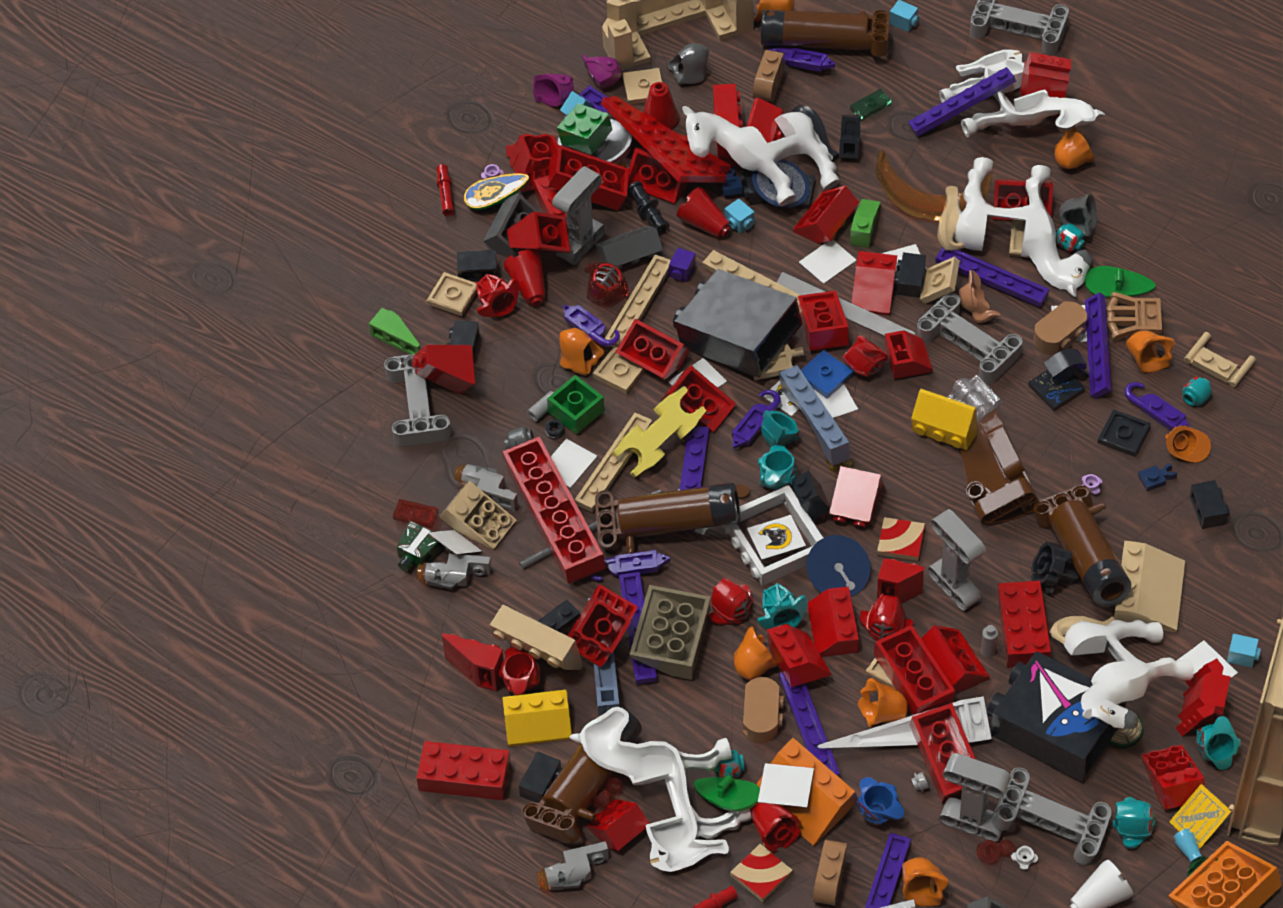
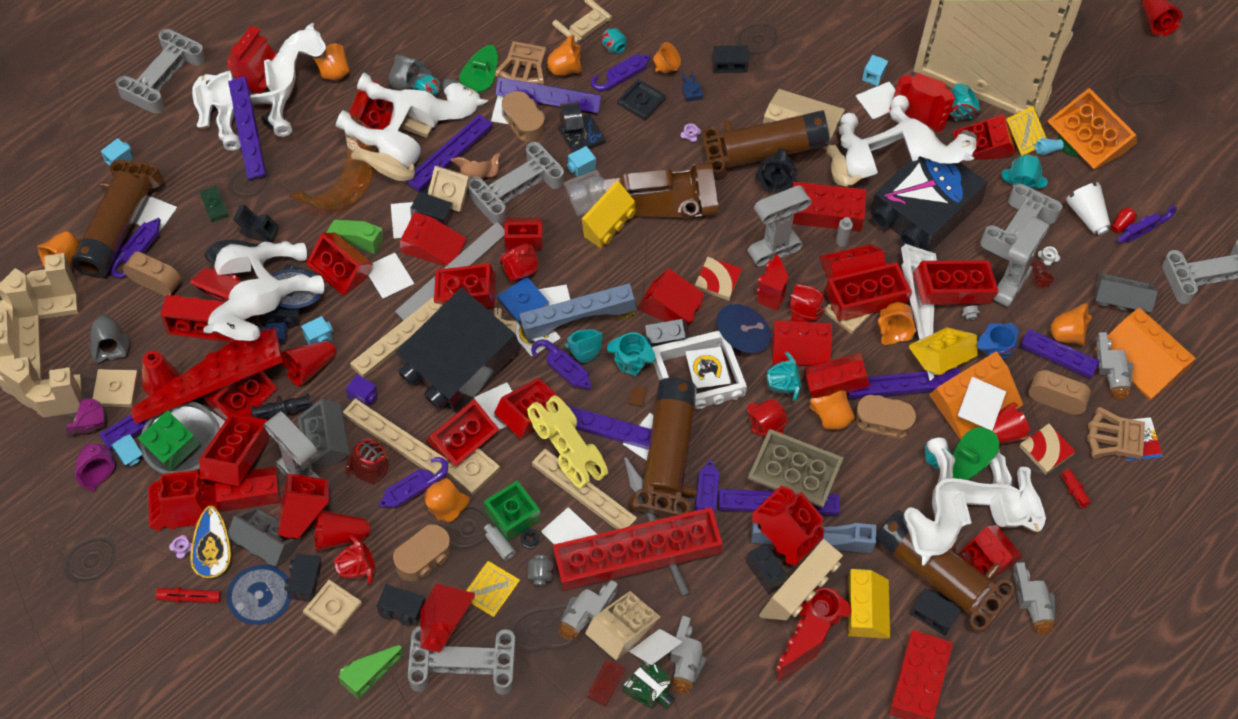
camera: 85 degrees left, 5 degrees up
(455, 237) = (258, 595): none -> dark blue piece
(498, 410) = (492, 588): none -> yellow sticker
(519, 347) = (422, 553): none -> medium nougat brick
(848, 63) = (152, 209): none -> white sticker
(854, 750) = (945, 350): none -> yellow slope
(1014, 390) = (581, 162): none -> medium azure brick

